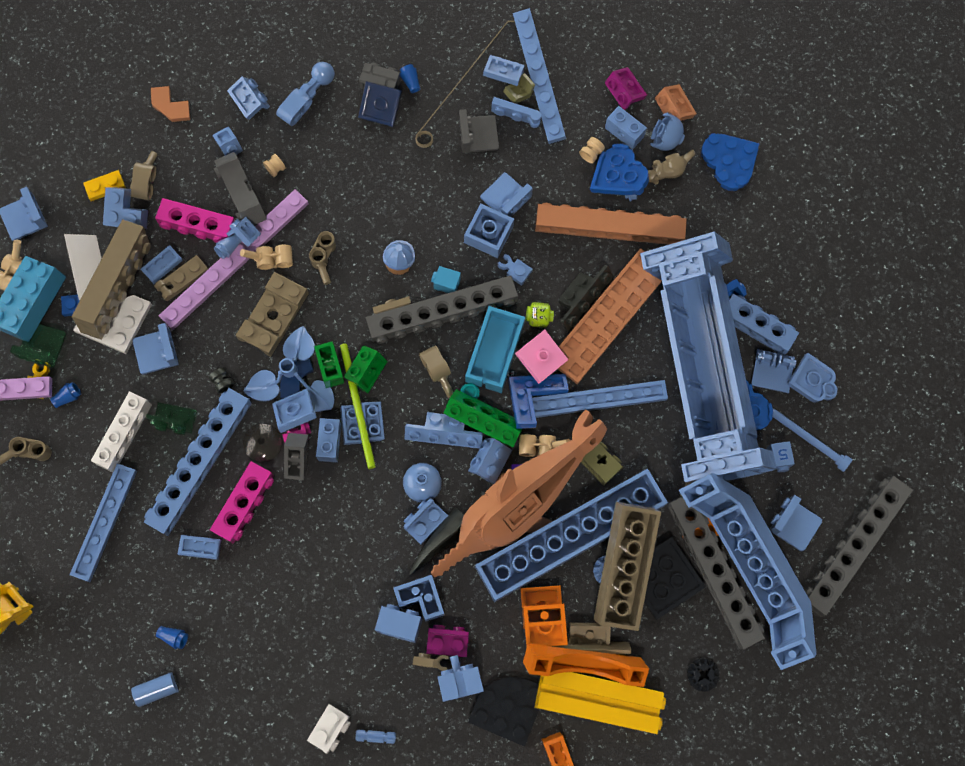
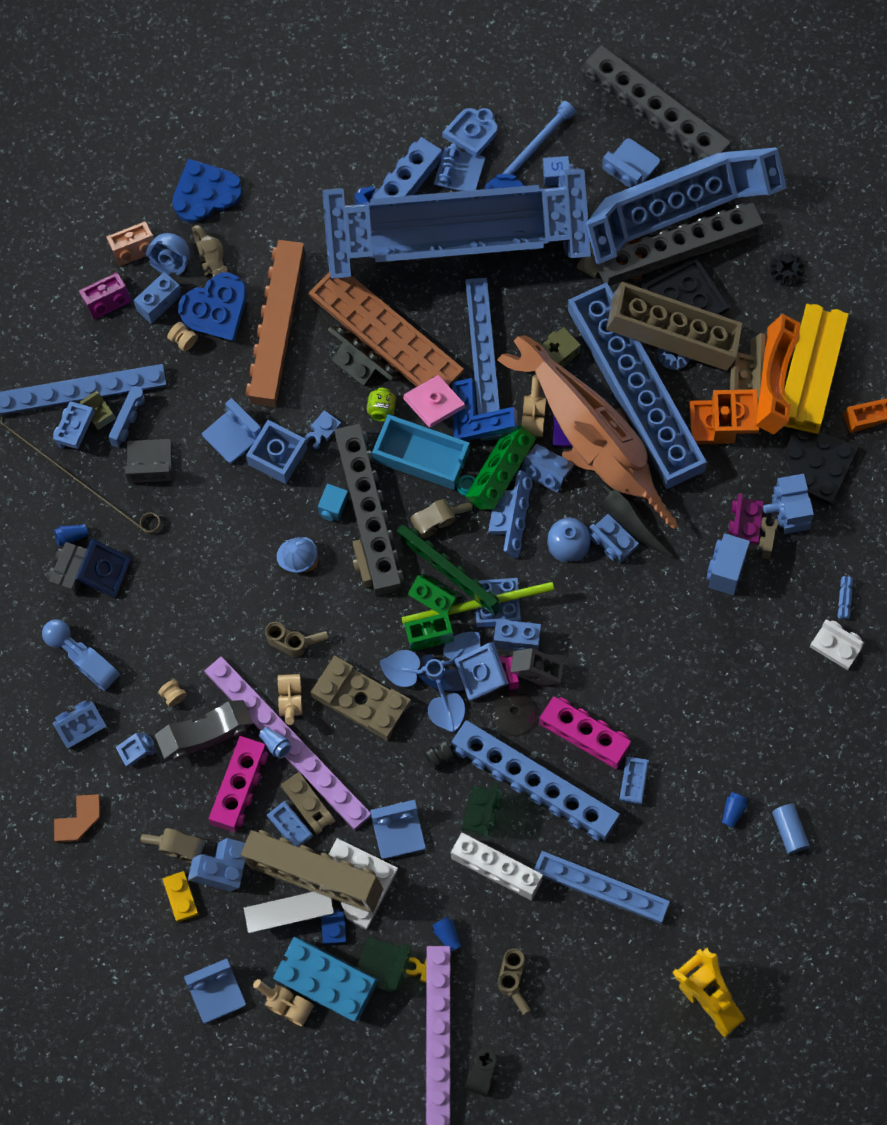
camera: 80 degrees left, 5 degrees down
(244, 230) = (258, 721): medium blue bracket -> none
(379, 384) = (454, 574): none -> dark green plate
(422, 592) = (696, 538): medium blue brick -> none

